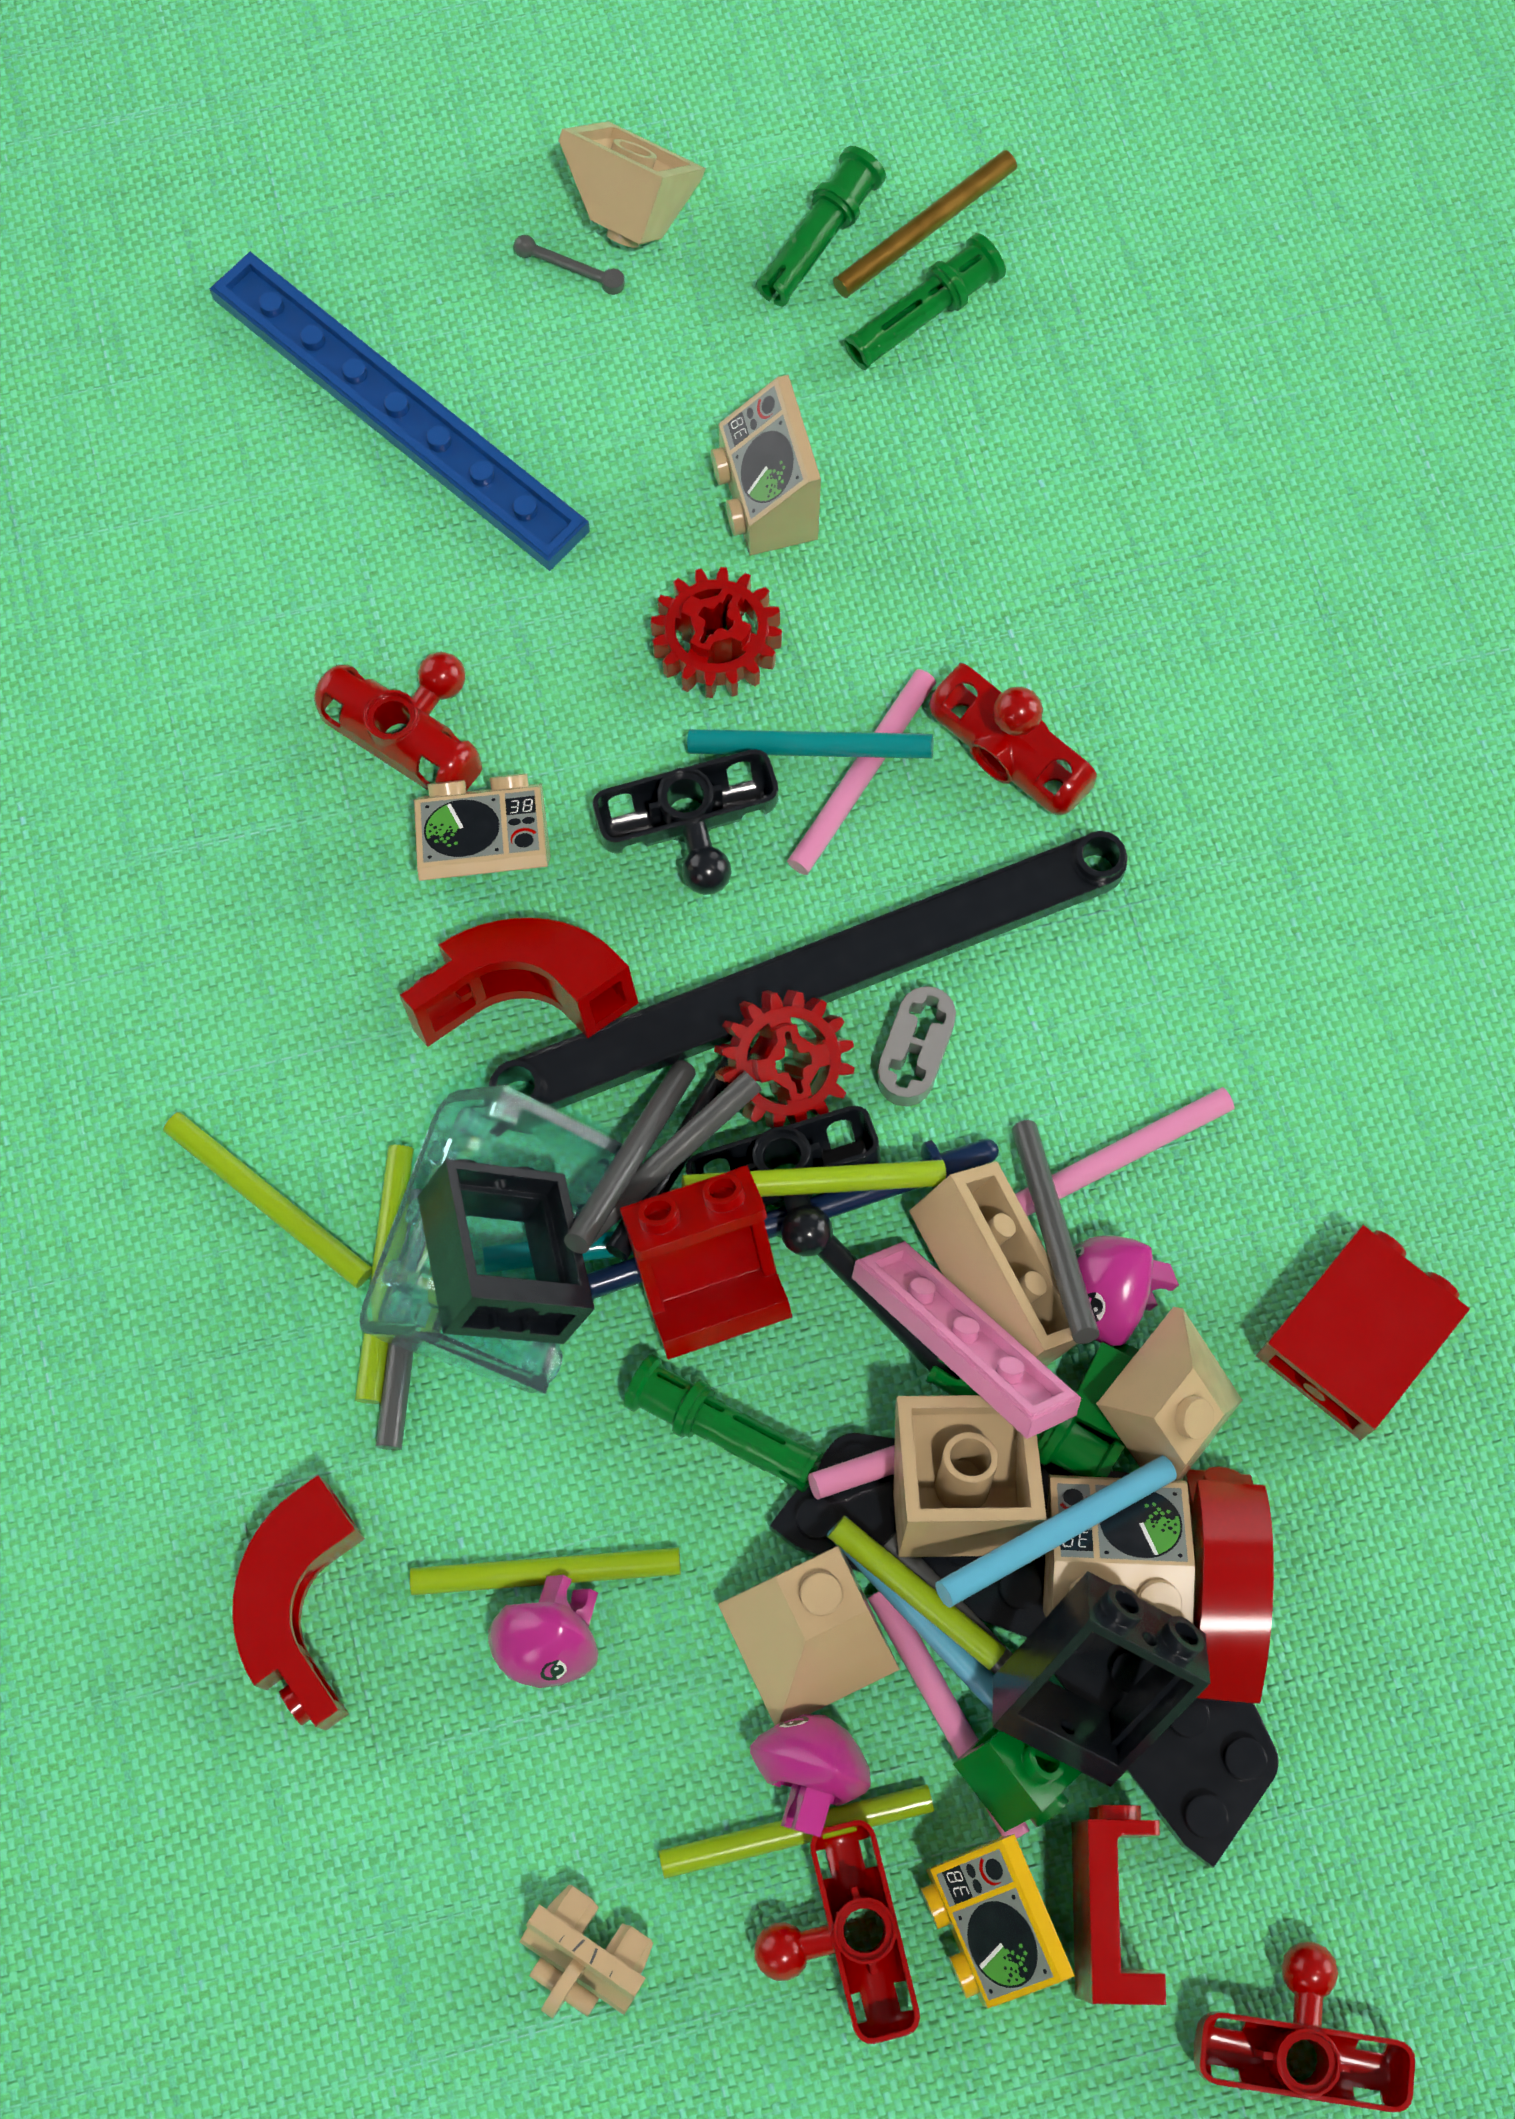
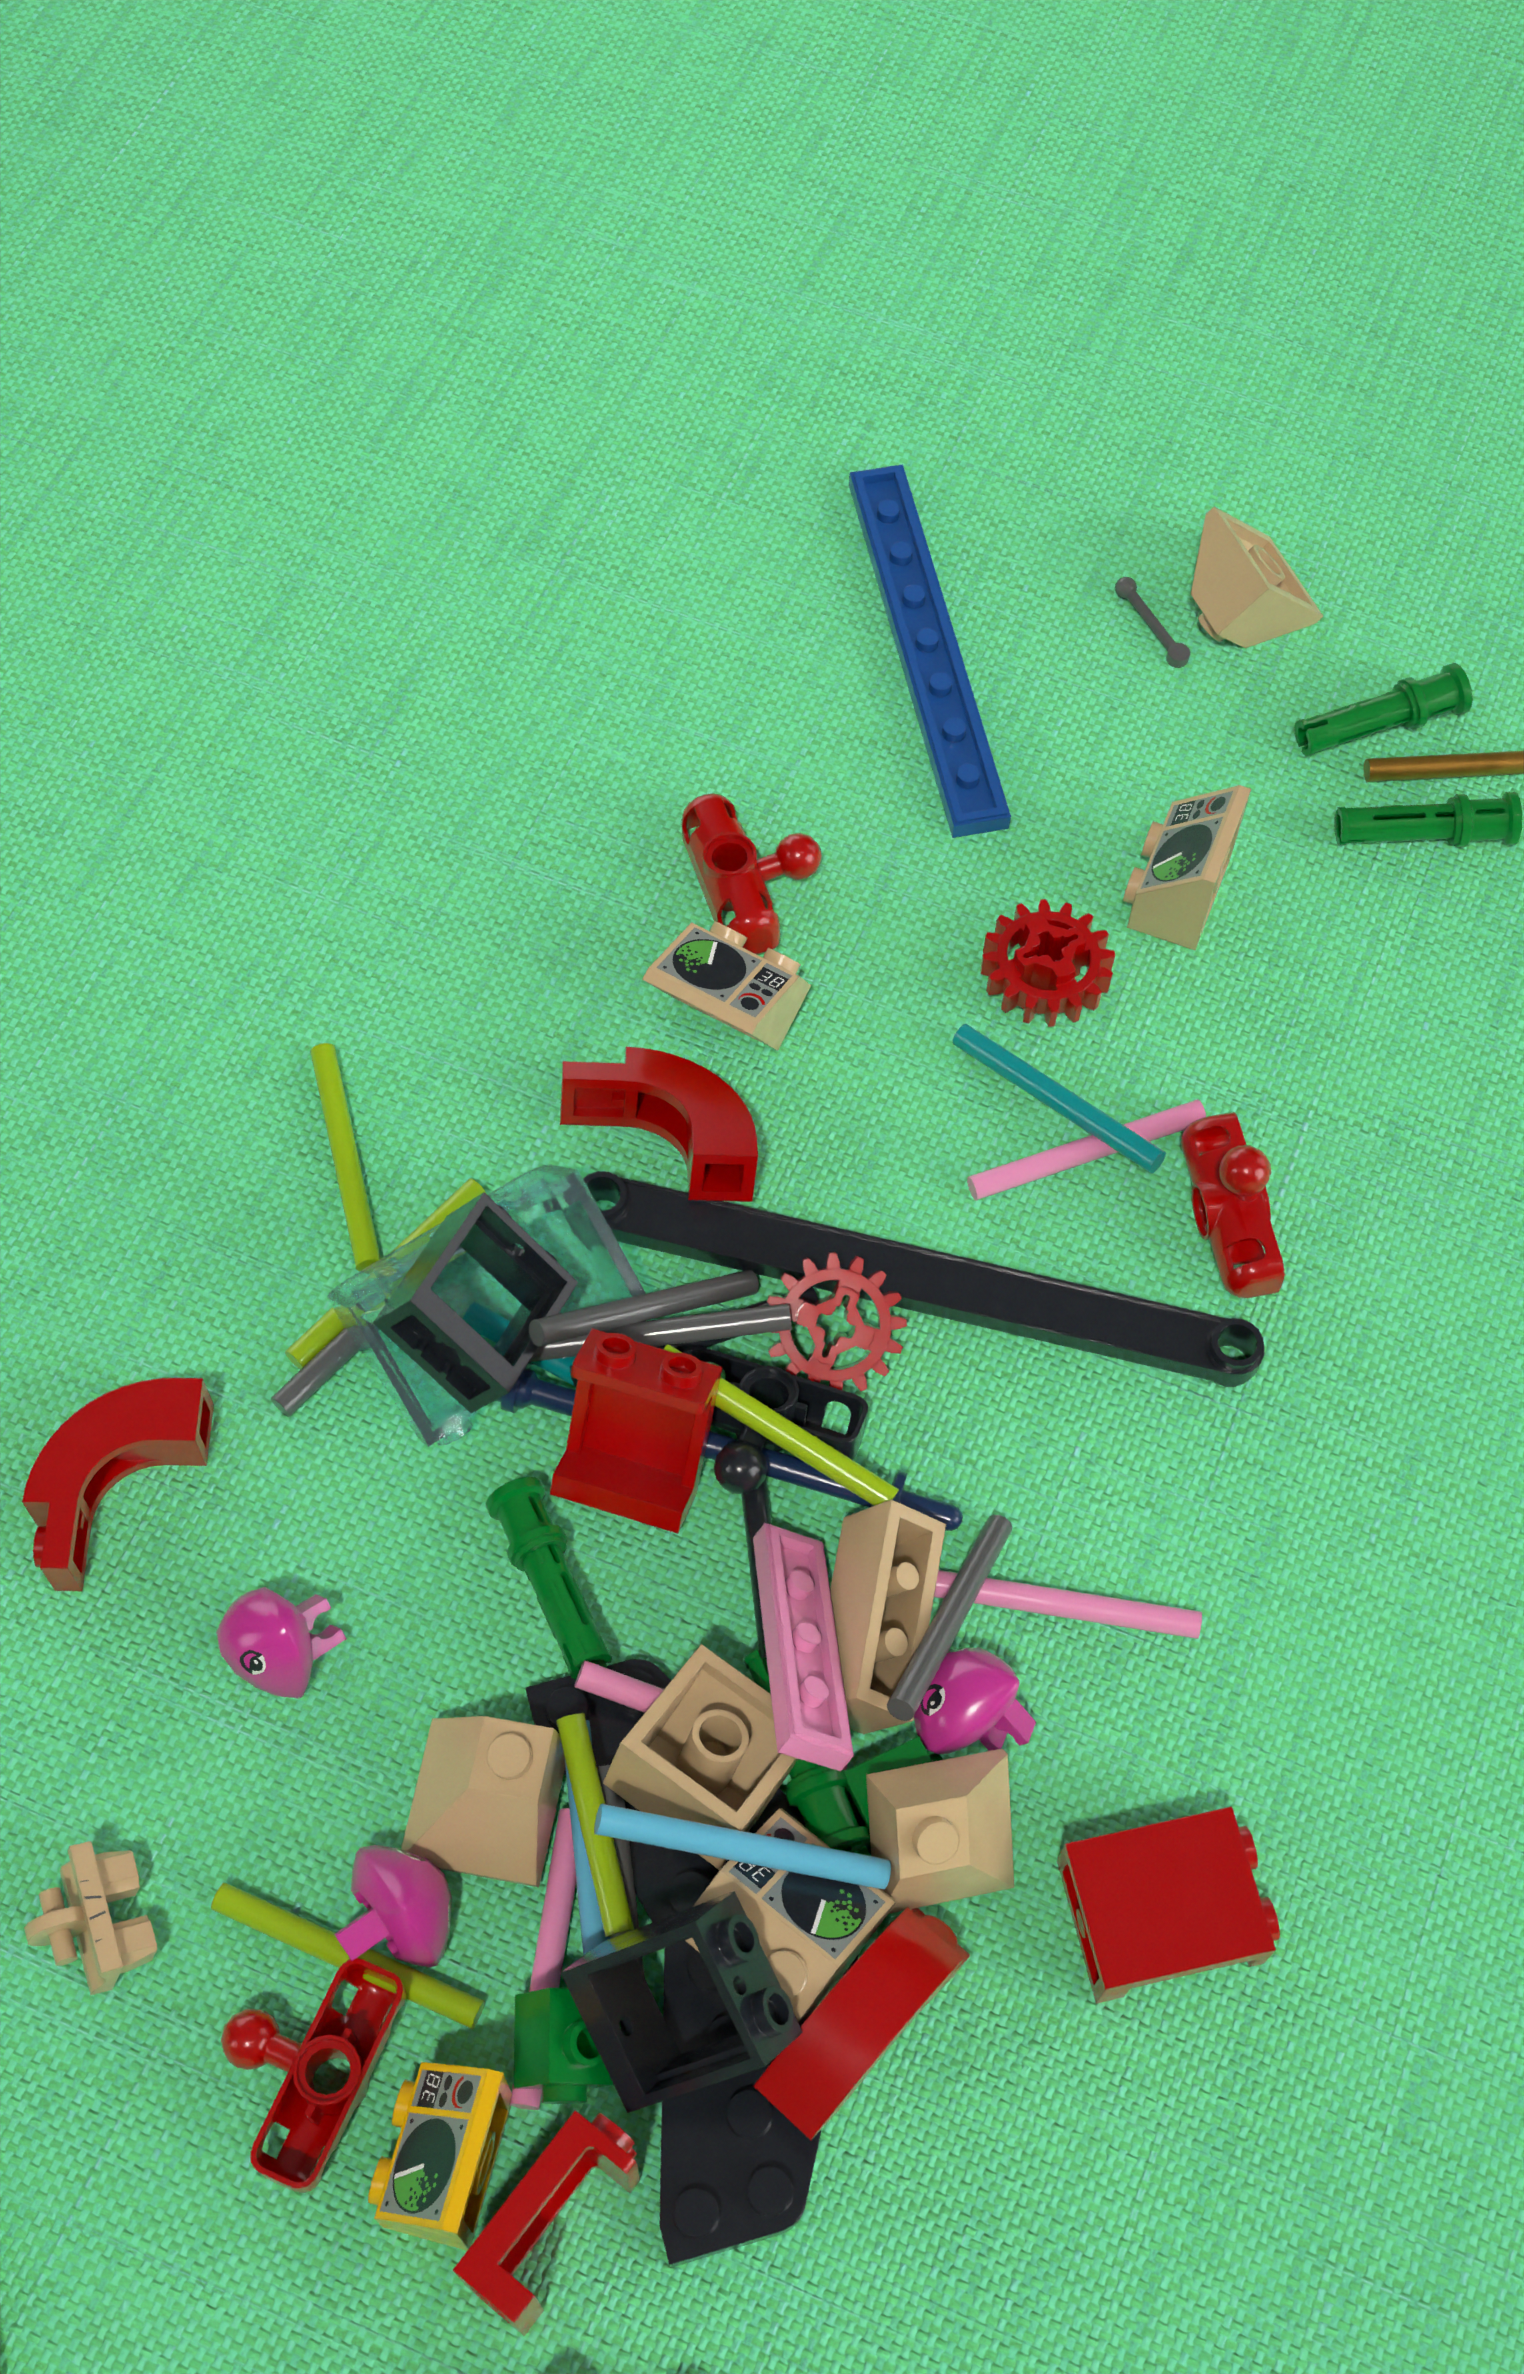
camera: 35 degrees right, 10 degrees down
(535, 1571) = (308, 1583): lime bar -> none
(655, 821) = (897, 1055): black piece -> none
(902, 1040) = (950, 1382): light grey beam -> none

